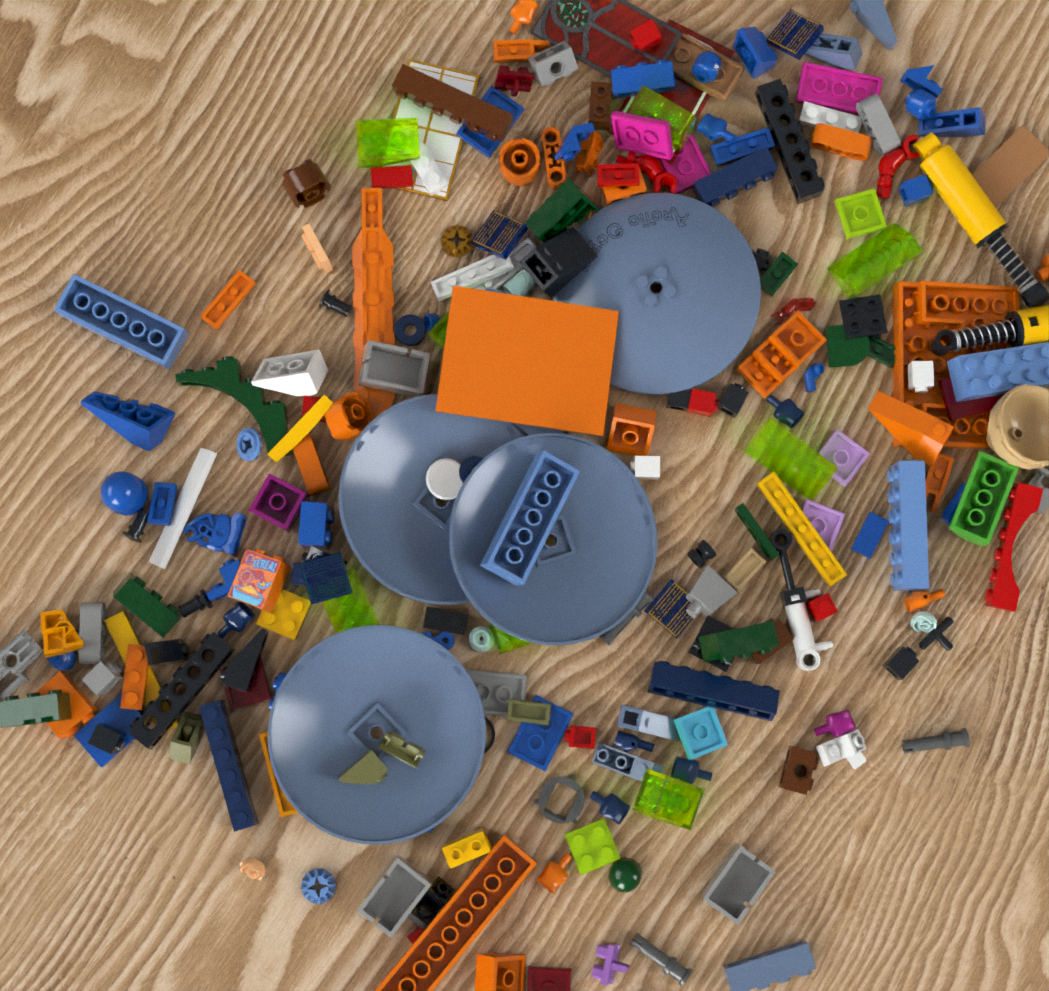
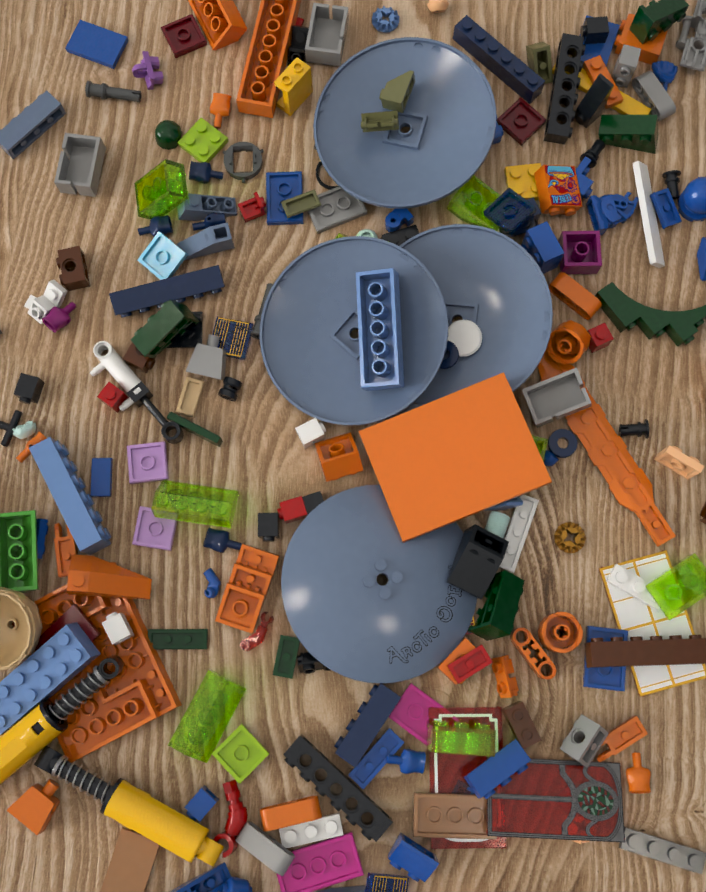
camera: 155 degrees right, 5 degrees down
(58, 634) = (677, 80): light orange slope -> none
(236, 619) = (557, 156): dark blue piece -> none
(243, 667) = (529, 122): black slope -> none
(244, 448) = (630, 284): medium blue gear -> none
(292, 373) = (633, 352): white slope -> none
(301, 429) = (599, 312): yellow sticker -> none
(392, 177) = (656, 561): red tile -> none
(471, 275) = (540, 513): white tile -> none
(499, 234) = (538, 559): clear blue tile -> none
(514, 80) = (608, 704): dark red hips -> none
(570, 144) = (526, 667): blue slope -> none
(642, 135) = (469, 712): dark pink tile -> none
(645, 36) = (518, 811): red brick -> none
(653, 169) = (446, 693): red piece -> none
(706, 67) = (447, 813): blue head -> none
(801, 529) = (159, 450): yellow tile -> none
(844, 351) = (195, 625): dark green tile -> none
(863, 317) = (192, 657): black hinge -> none

